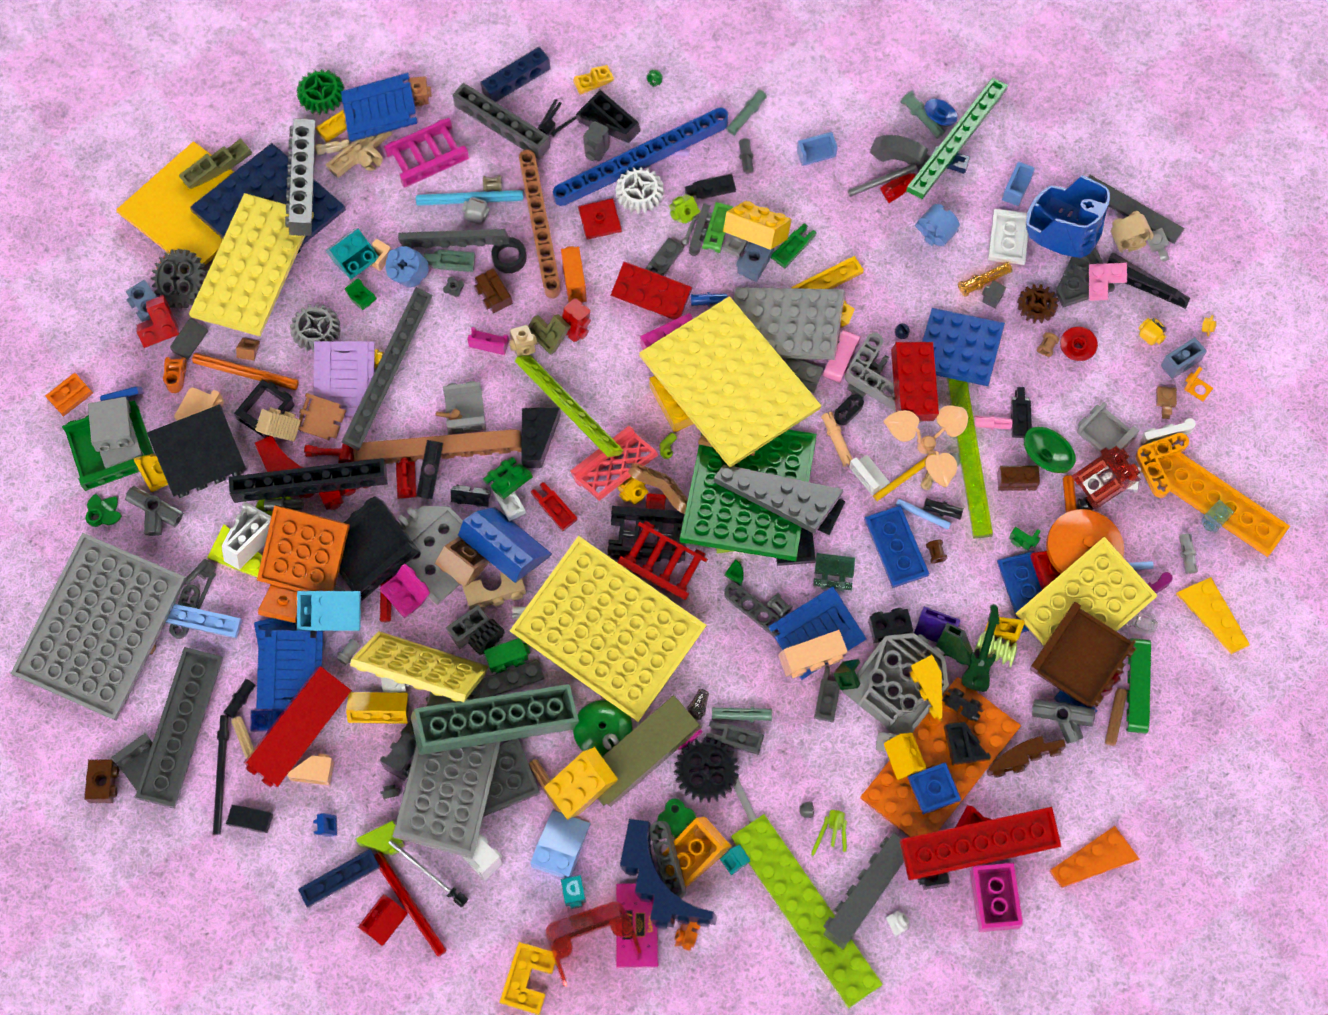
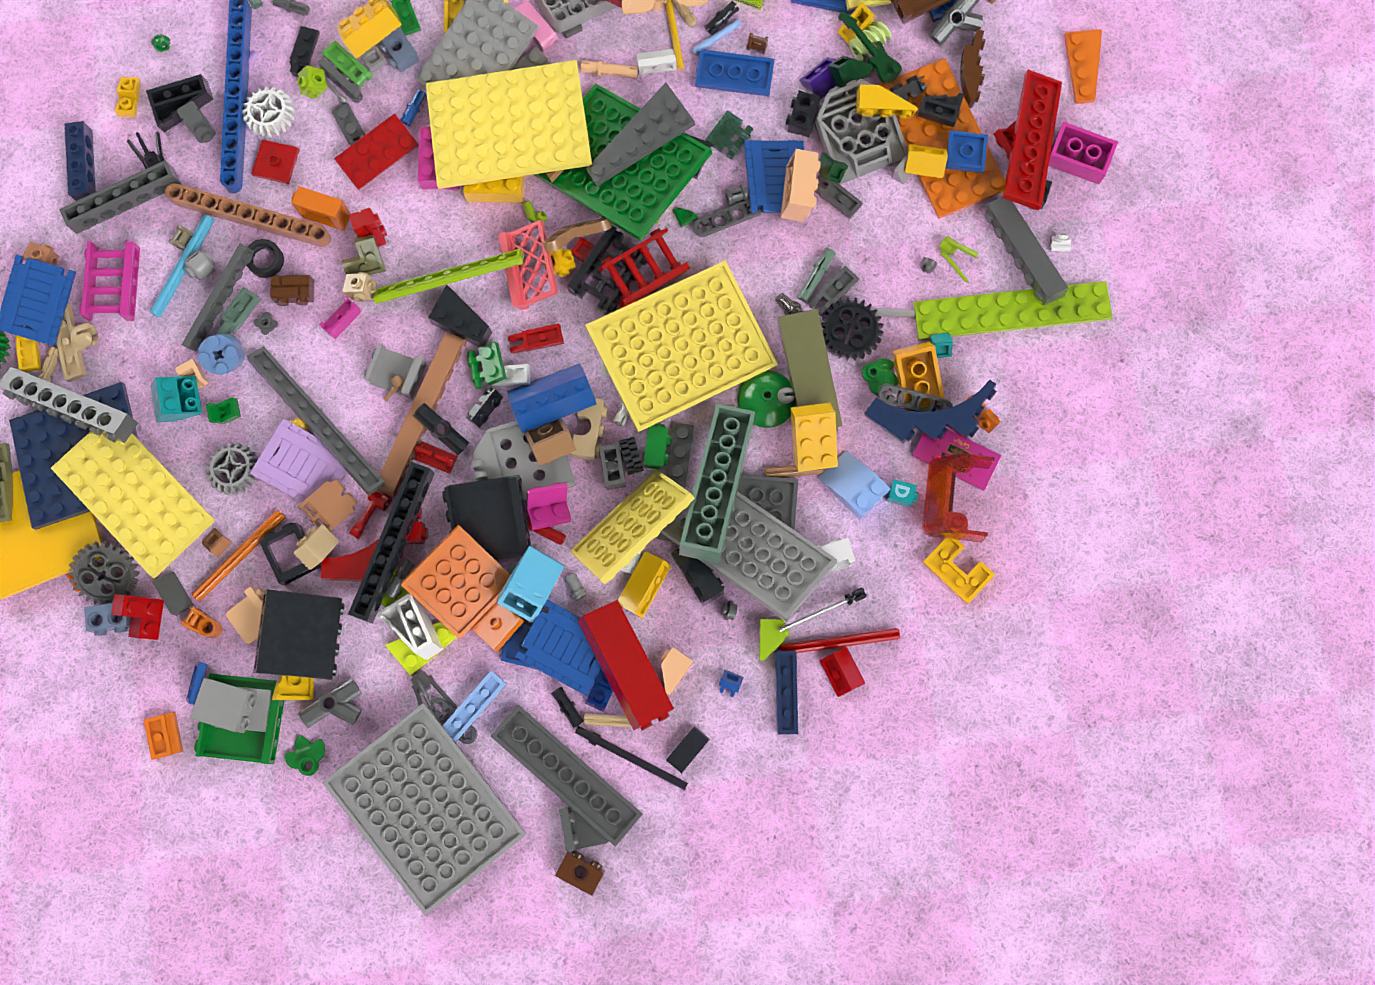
camera: 60 degrees left, 10 degrees up
(852, 412) = (590, 45): black beam -> none

